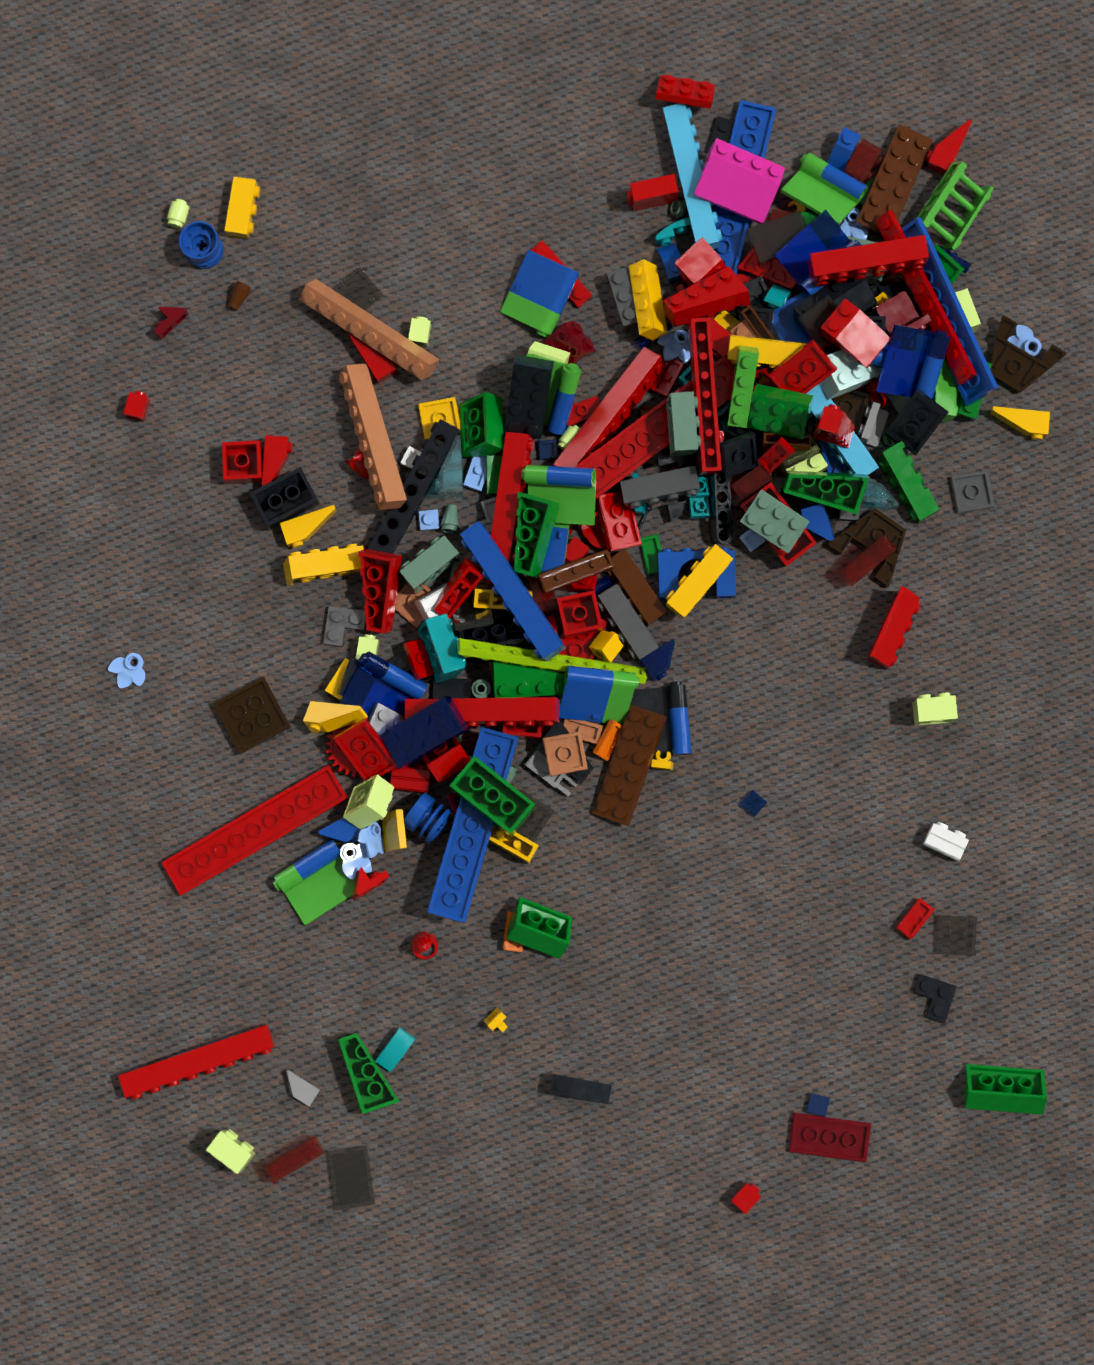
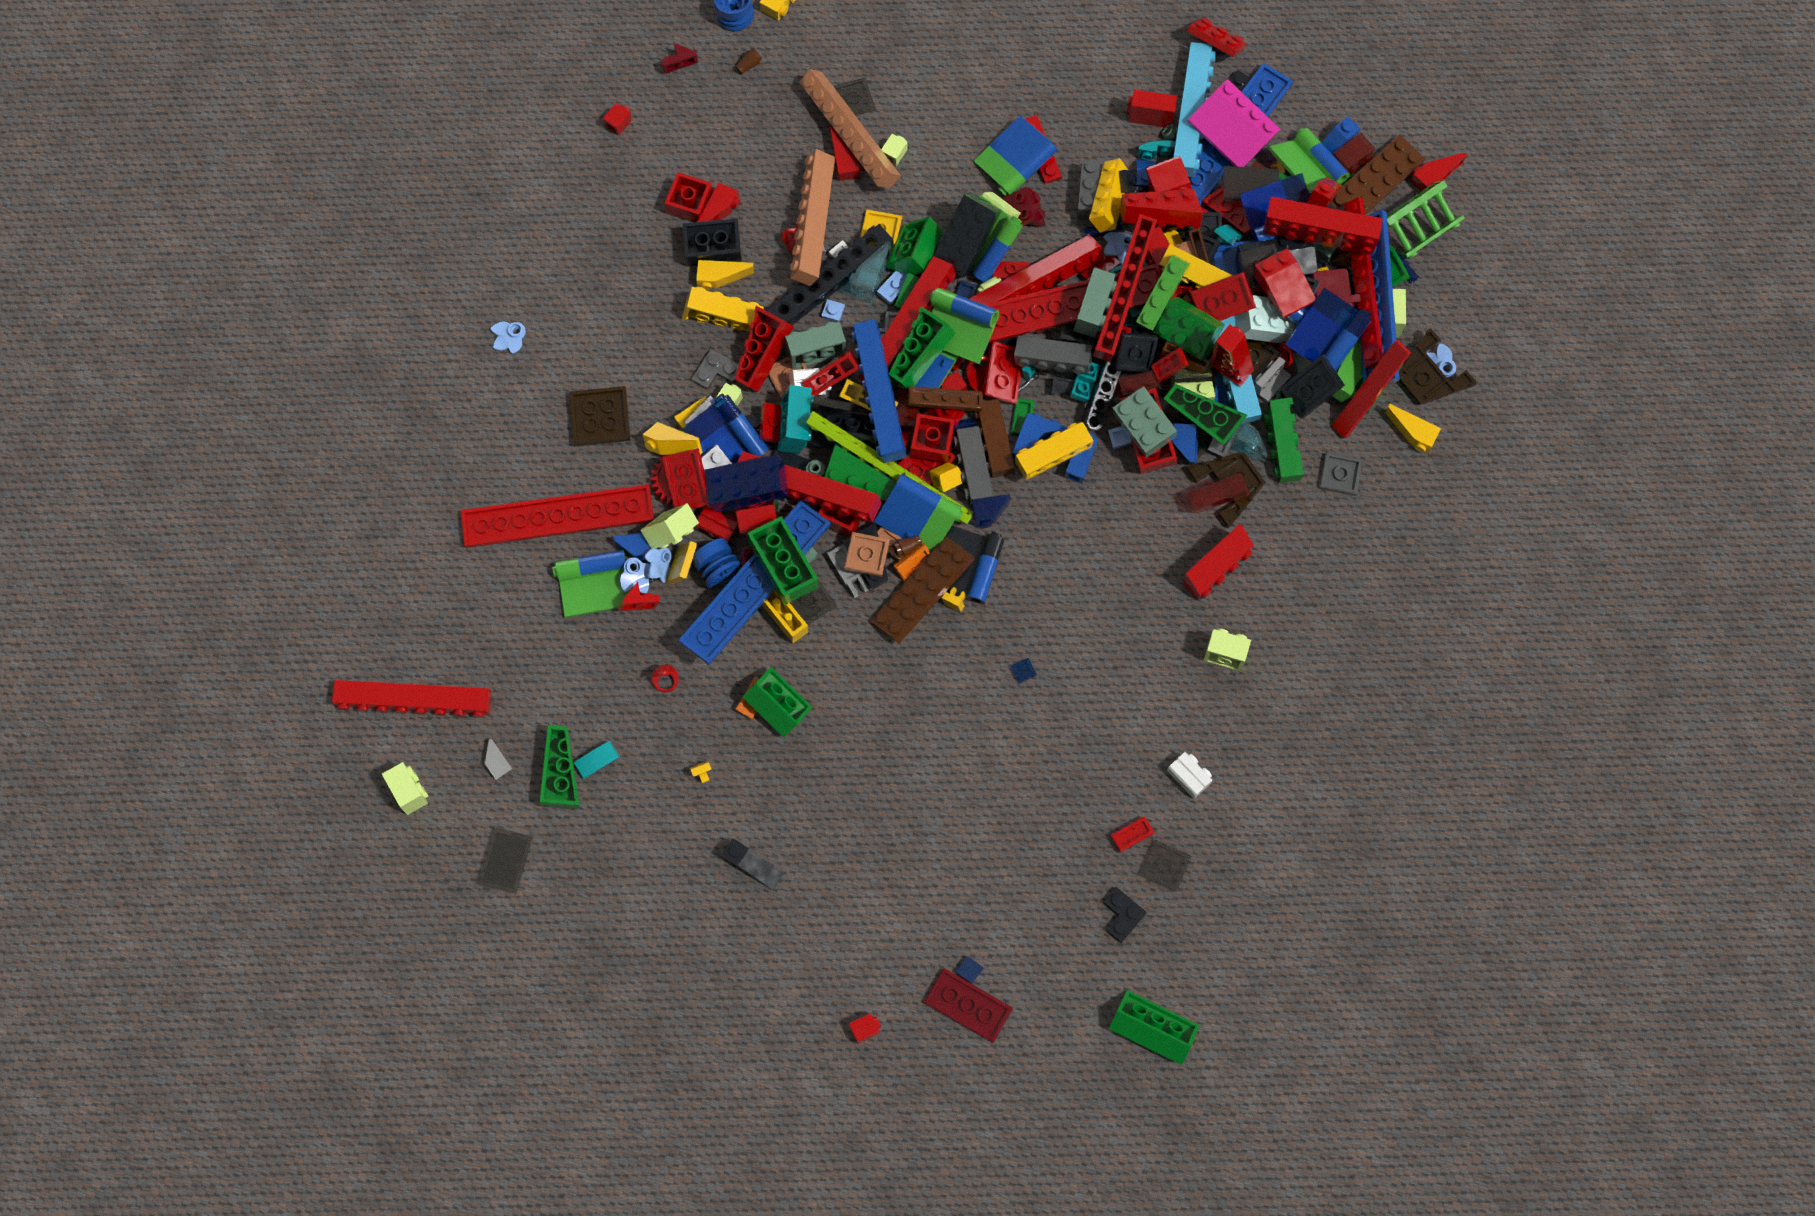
camera: 20 degrees right, 10 degrees down
(294, 1159) = (460, 821): clear red brick -> none
(450, 520) = (851, 317): sand green cone -> none
(597, 729) = (905, 546): none -> reddish brown cone
(660, 279) = (1128, 181): none -> black bracket
(854, 222) = (1324, 192): none -> red slope
(974, 404) = (1371, 389): none -> red tile

